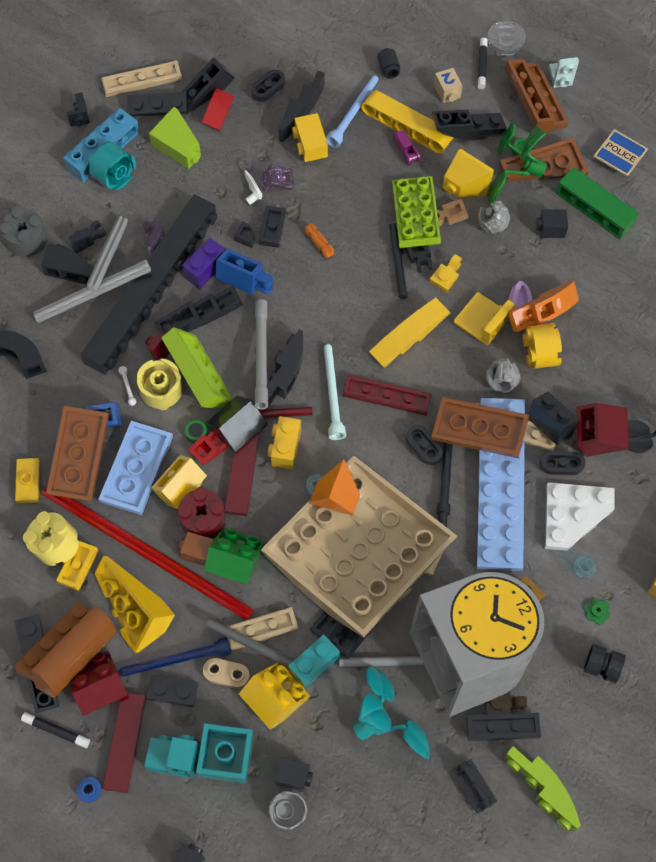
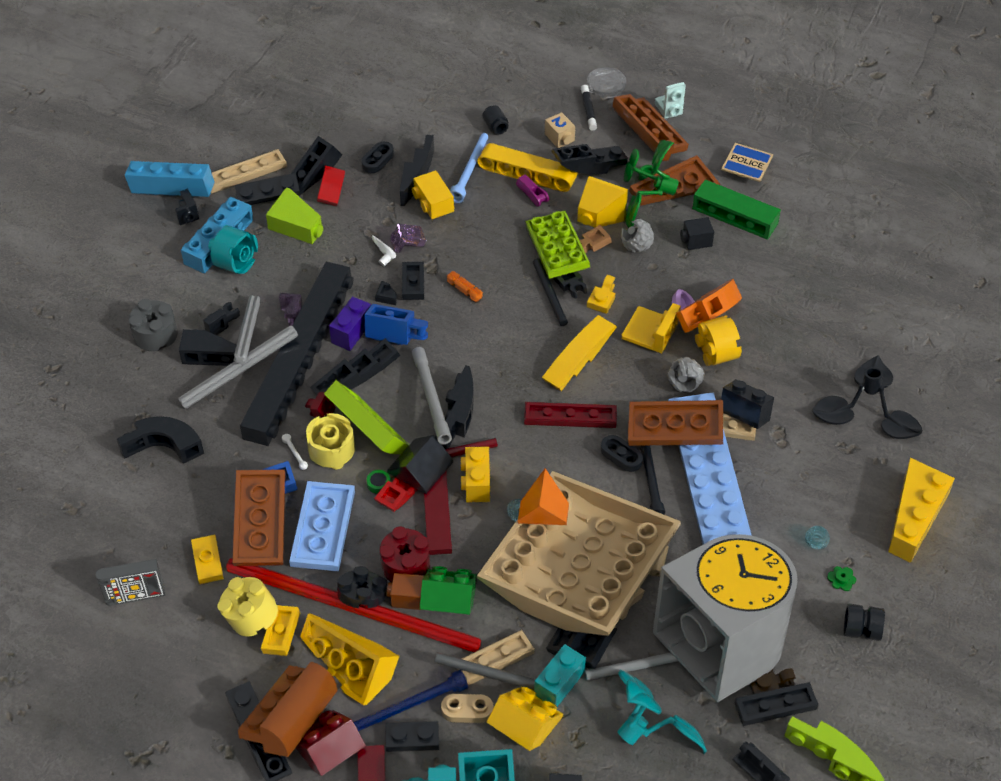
camera: 10 degrees left, 15 degrees down
(68, 77) = (169, 178): none -> dark azure brick
(156, 528) = (361, 588): none -> black plate
(178, 481) = (371, 528): yellow brick -> none
(337, 429) = (527, 454): light aqua piece -> none
(561, 462) = (766, 445): black plate -> none
(574, 512) = (792, 490): white plate -> none
(602, 428) = (799, 405): dark red slope -> none

